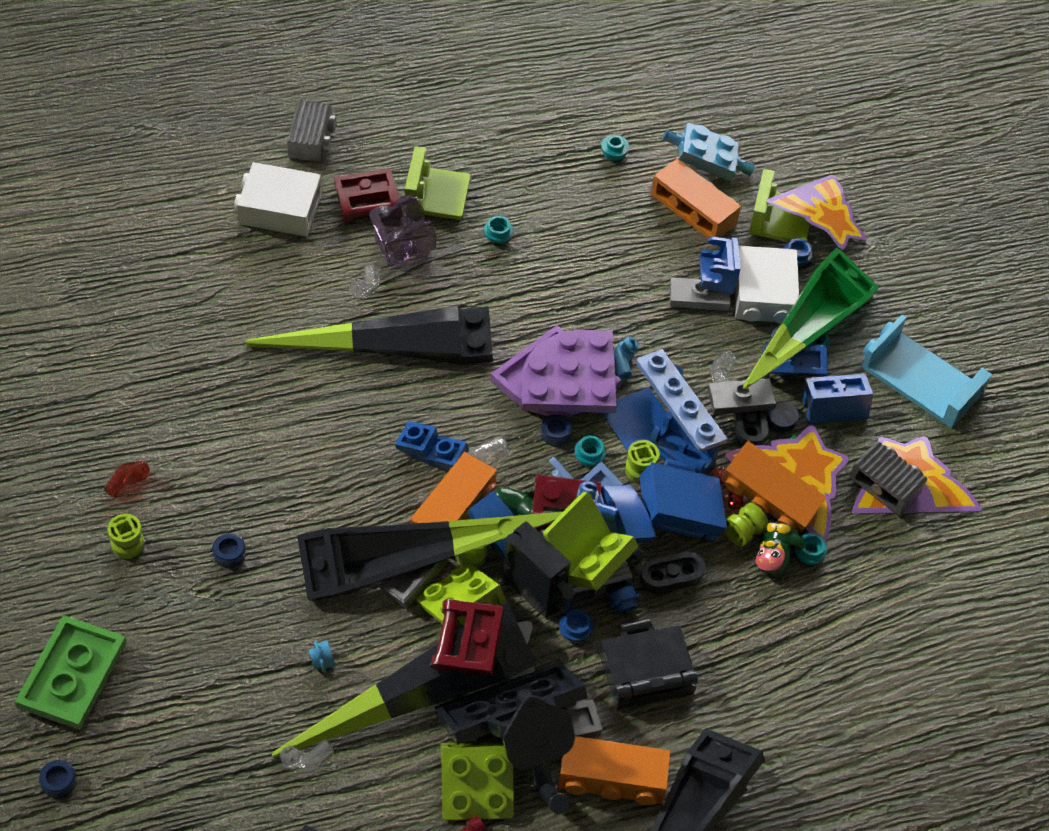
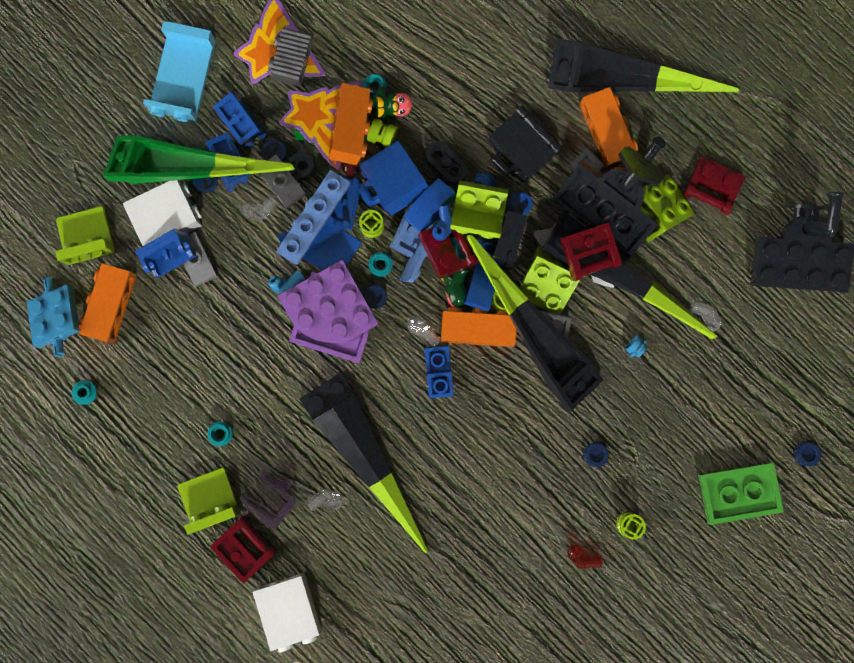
camera: 115 degrees left, 30 degrees up
(310, 131) = (205, 632): flat silver brick -> none
(803, 248) = (114, 208): blue plate -> none
(822, 206) = (63, 207): sticker -> none

